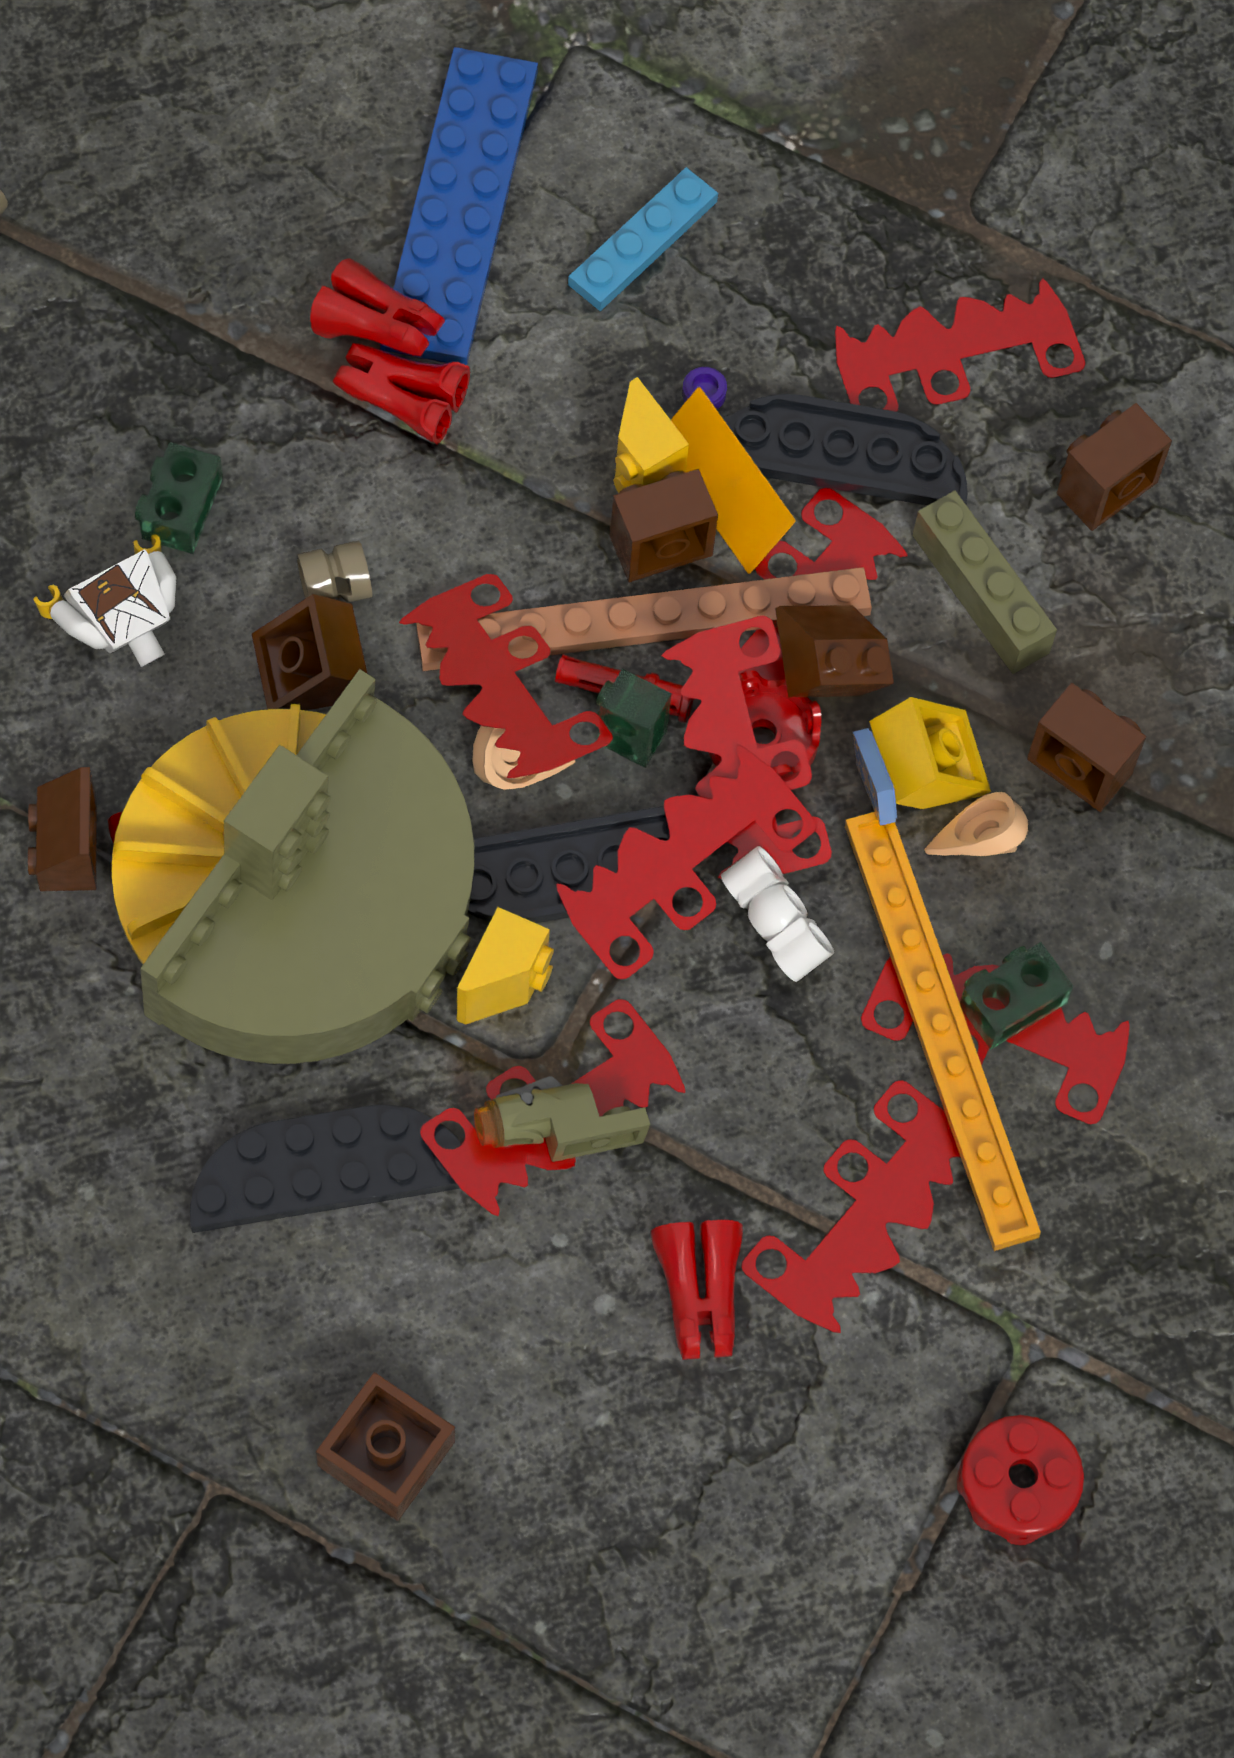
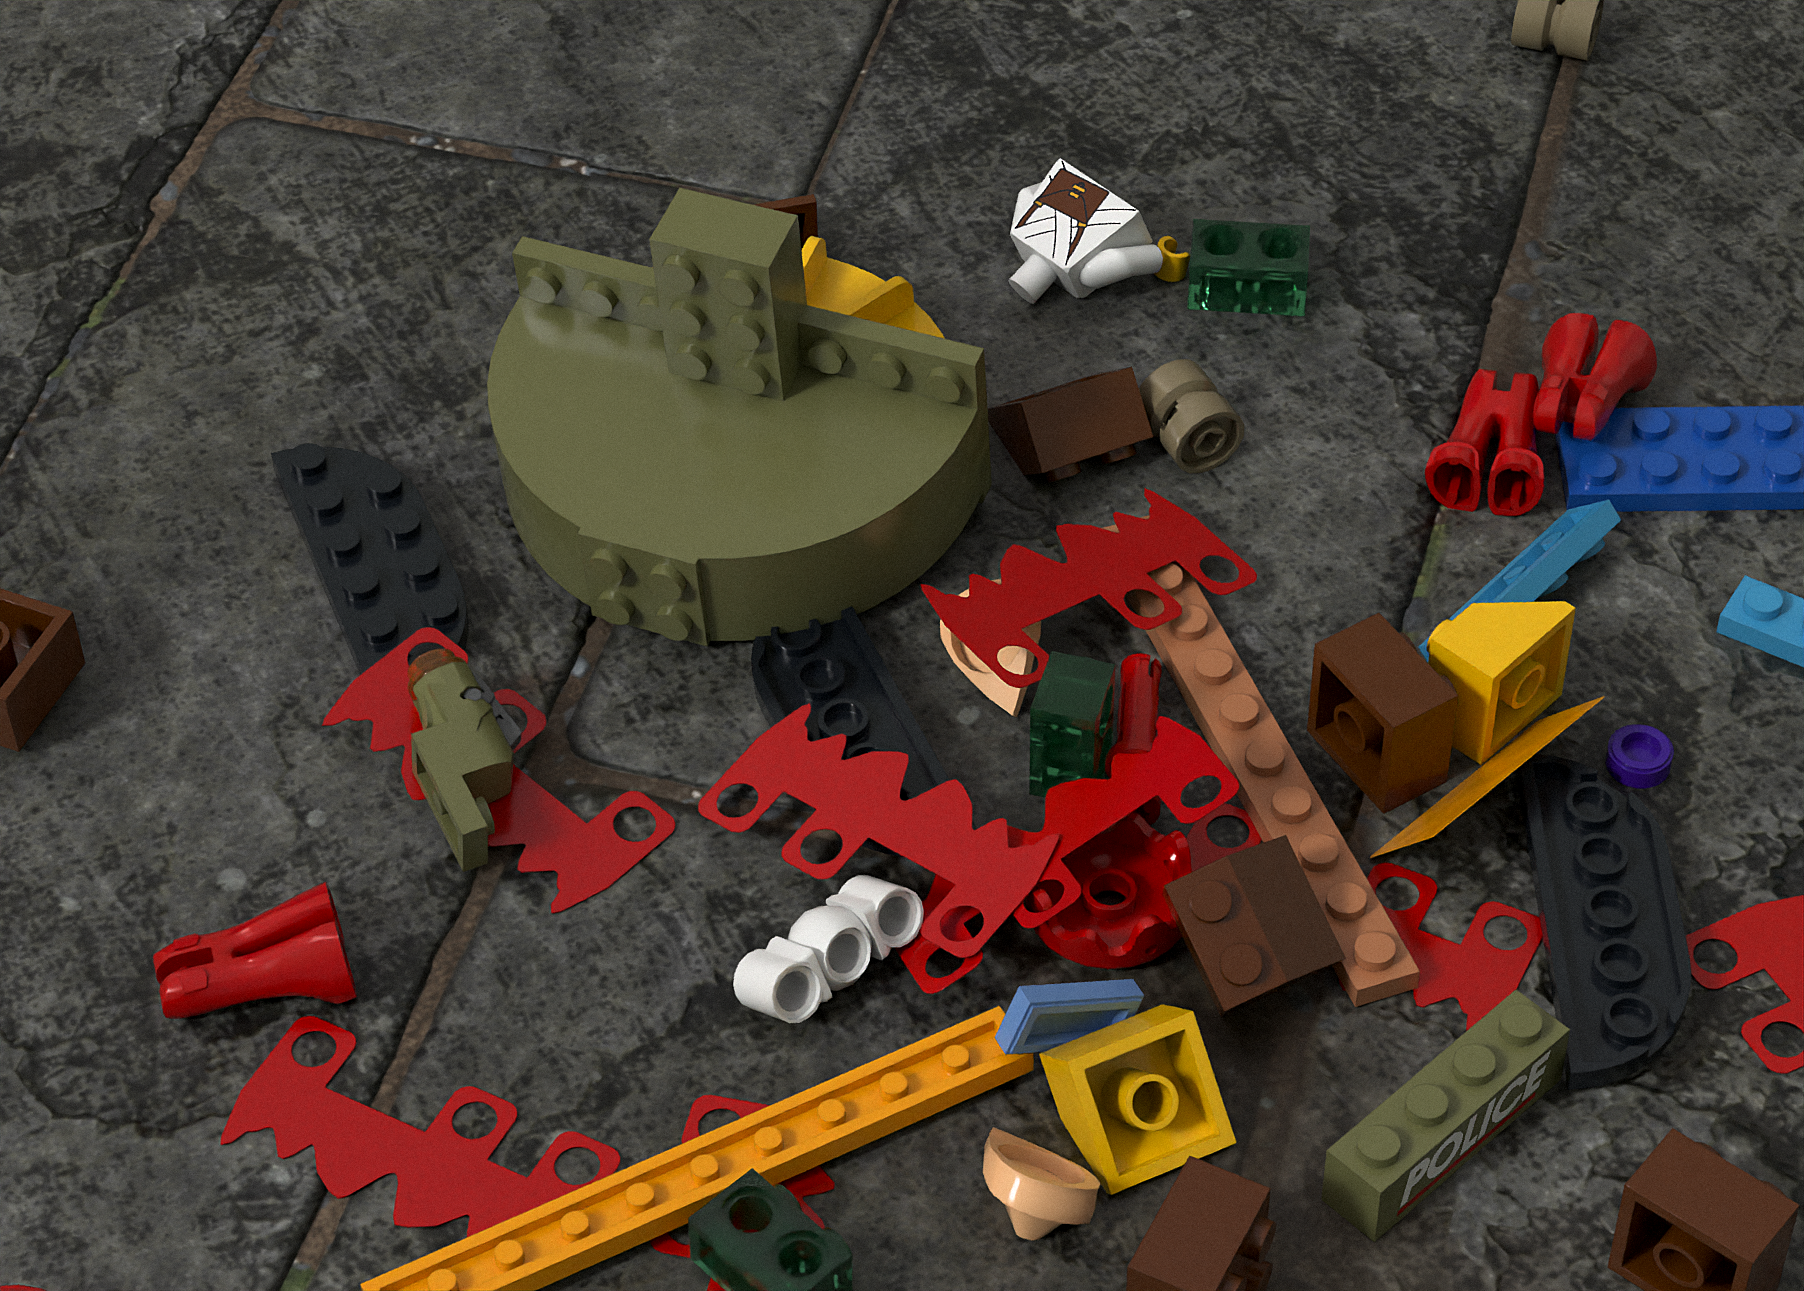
camera: 85 degrees right, 20 degrees down
(504, 968) = (665, 654): yellow slope -> none
(545, 412) = (1544, 562): none -> dark azure plate

